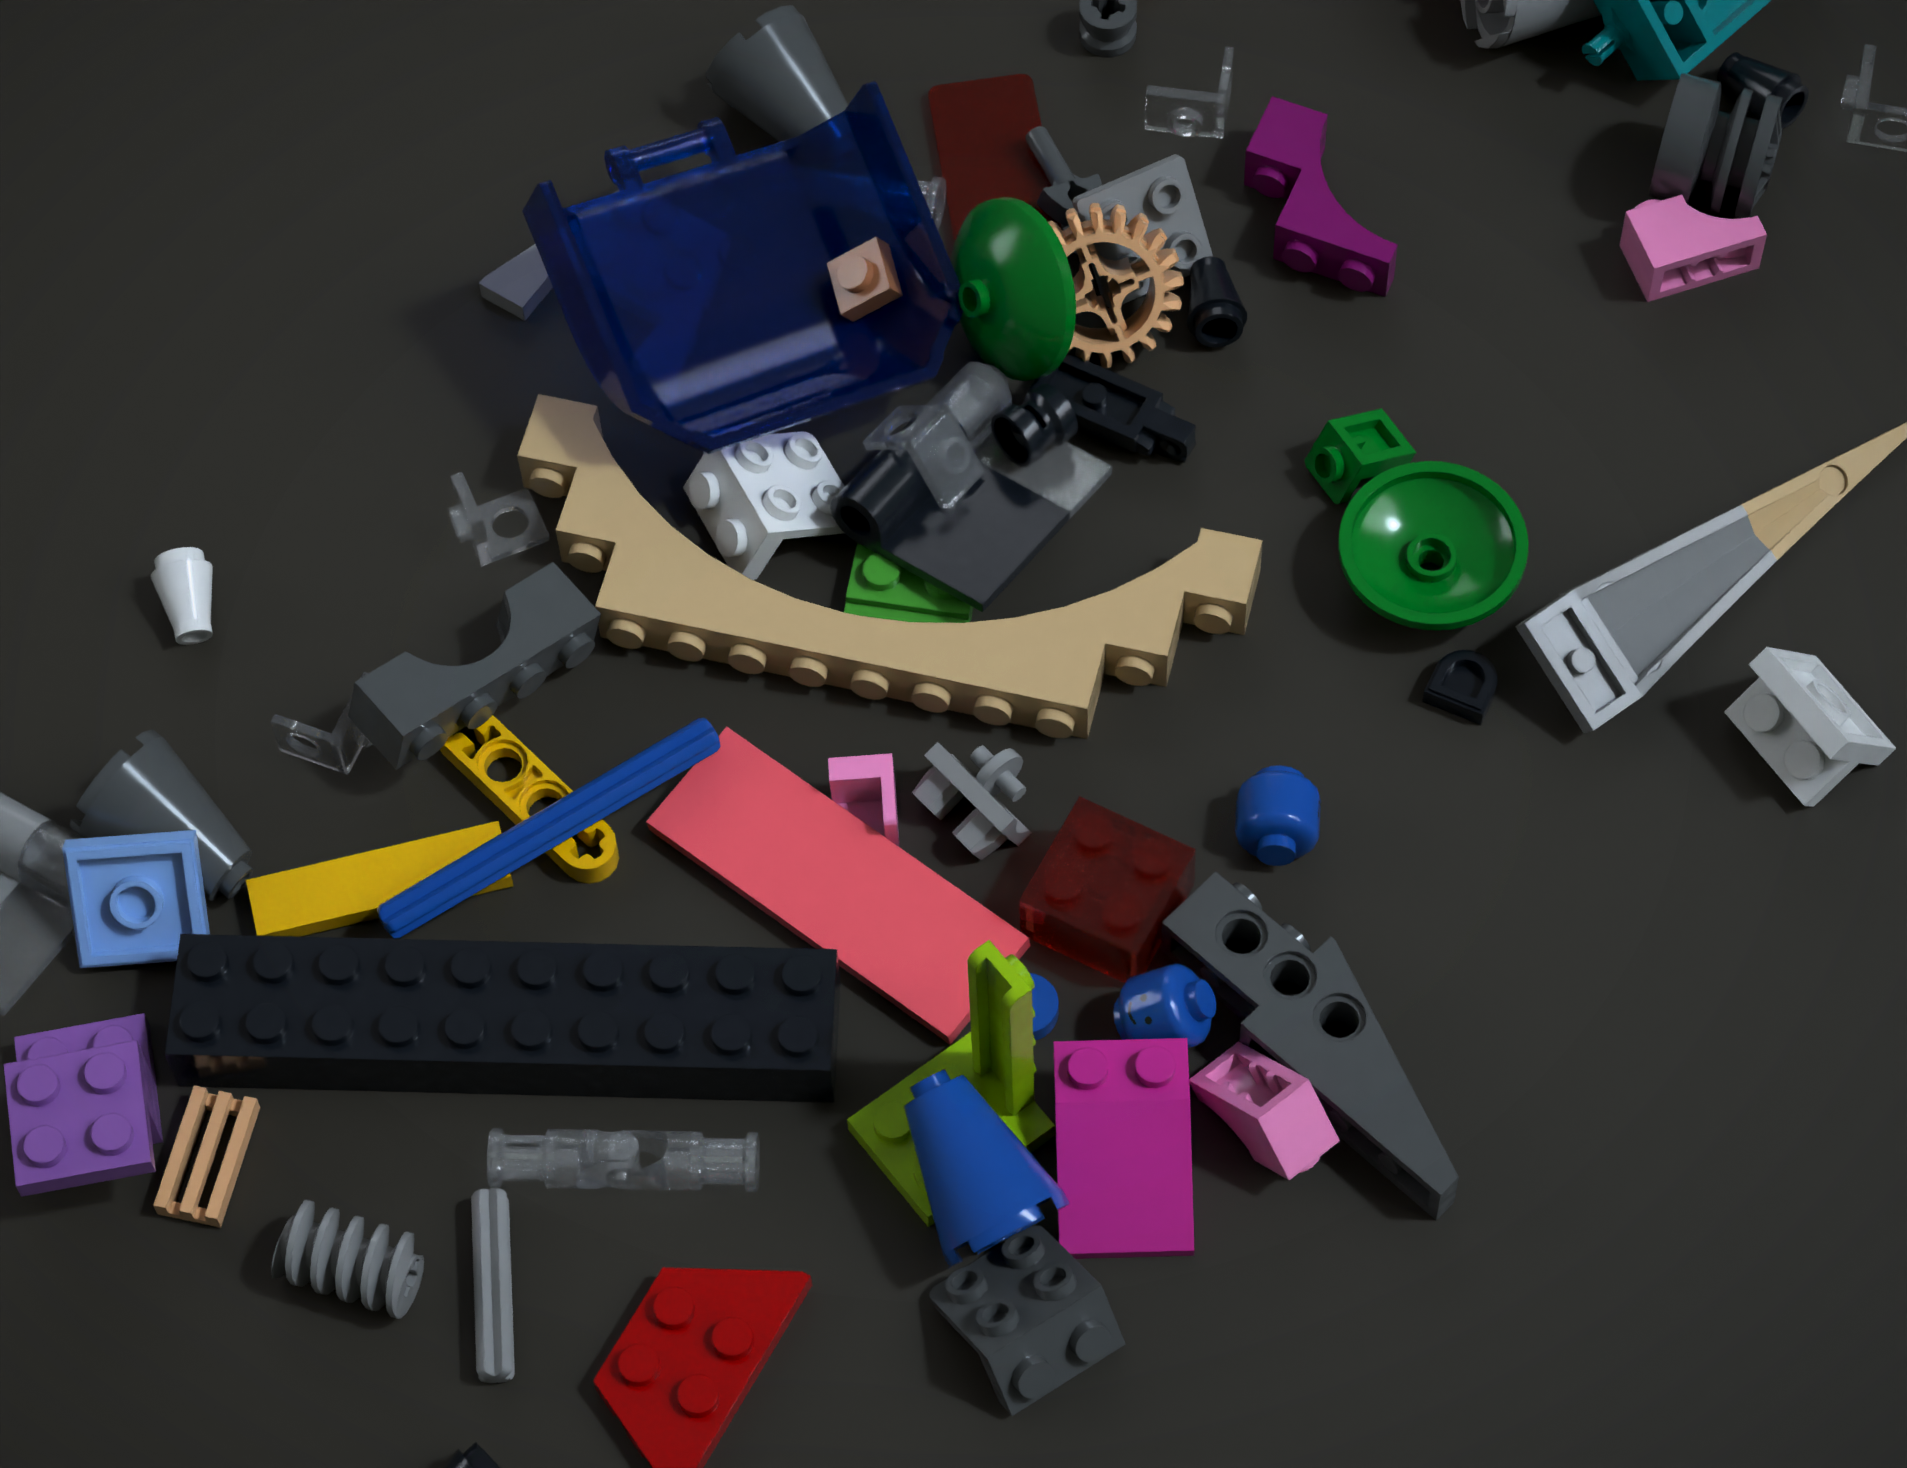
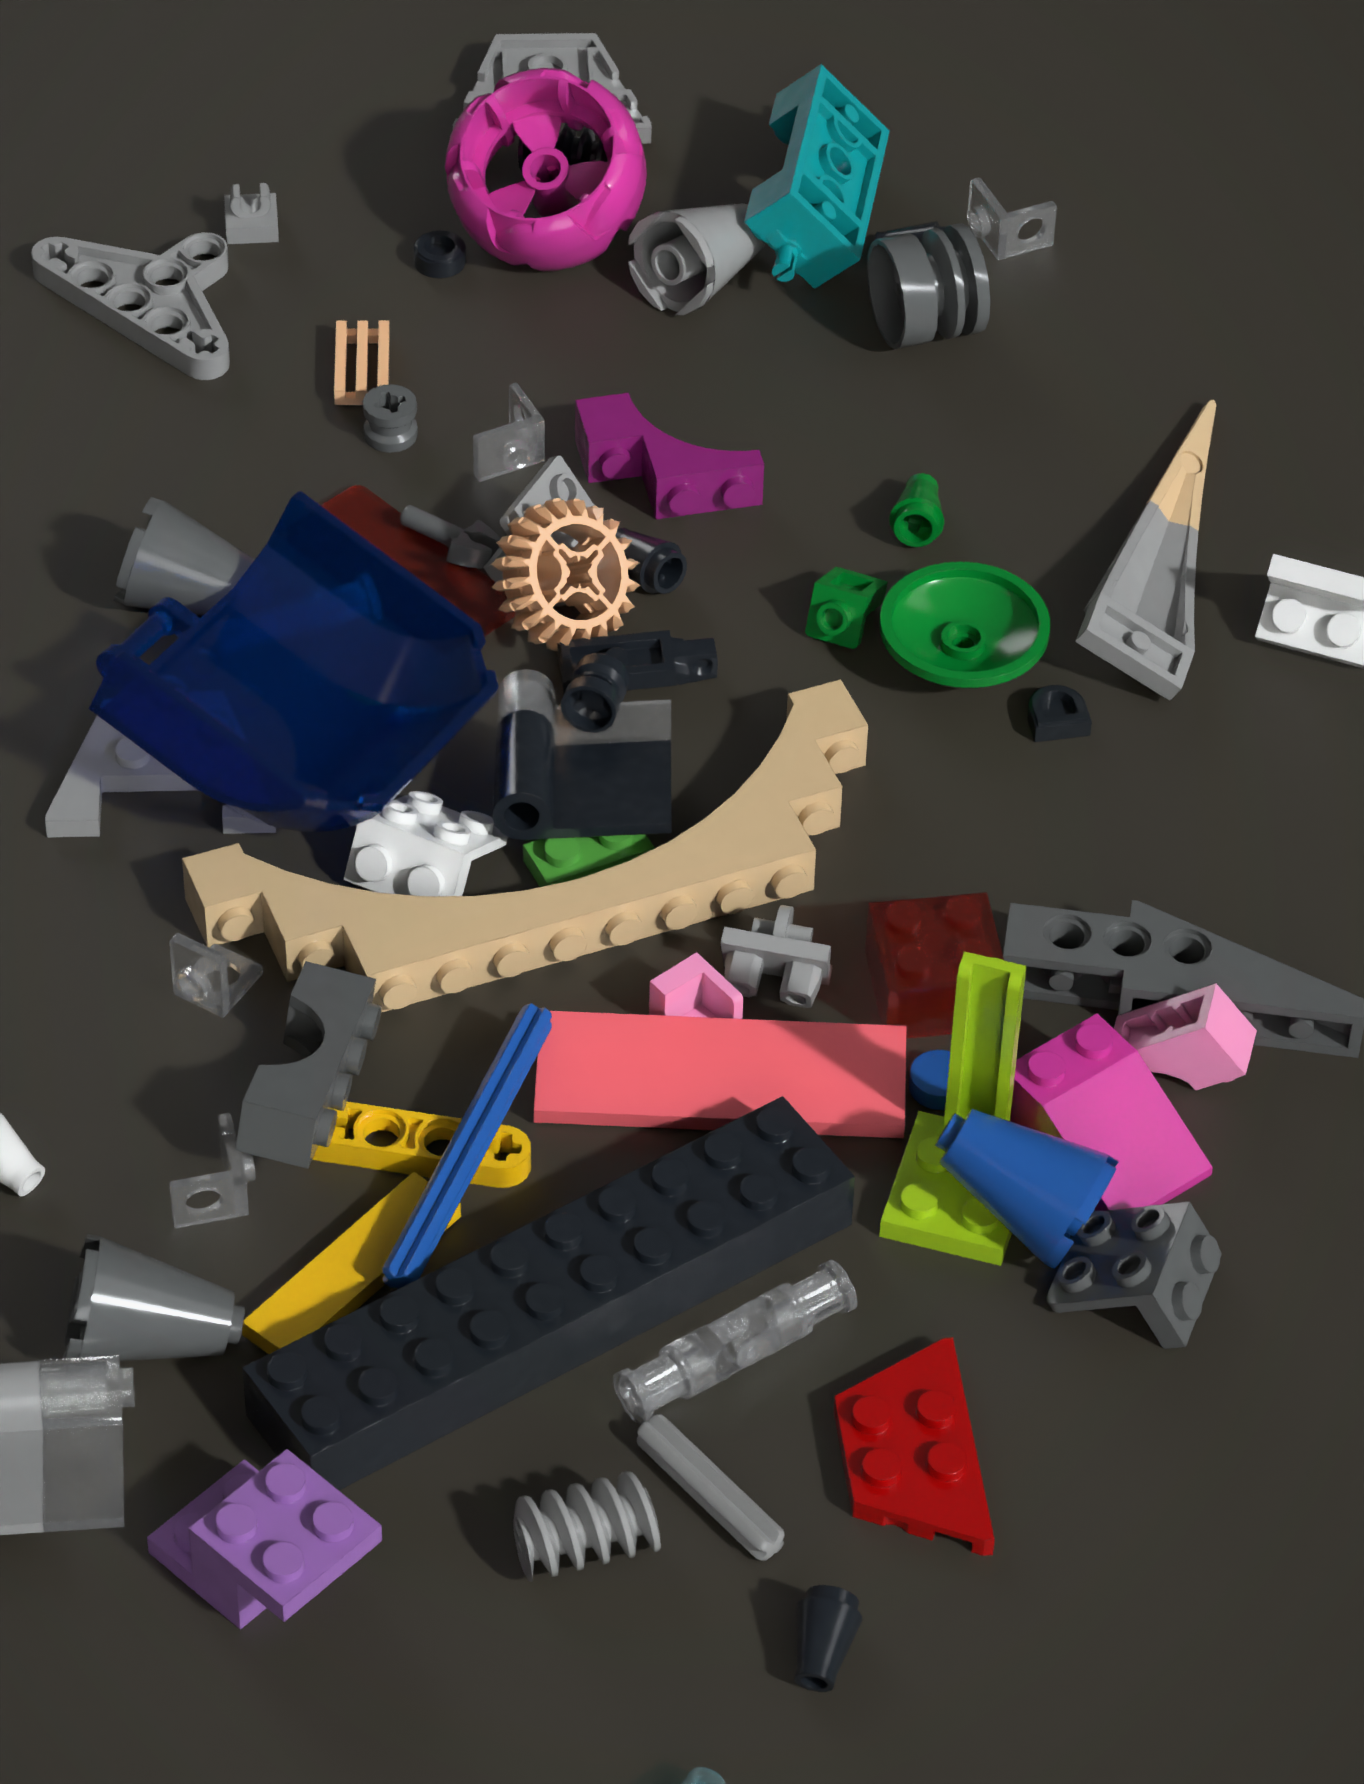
camera: 40 degrees left, 15 degrees down
(134, 896) = (172, 1371): light blue tile -> none
(221, 1106) = (373, 1492): light nougat tile -> none
(864, 279) = (368, 664): nougat plate -> none
(935, 446) = (535, 724): clear bracket -> none
(1014, 289) = (527, 582): green dish -> none
(1165, 1005) = (1052, 1008): blue head -> none
(1278, 815) = (1010, 856): blue head -> none
(1510, 391) = (918, 512): none -> green cone
(1683, 249) = (955, 367): bright pink arch -> none

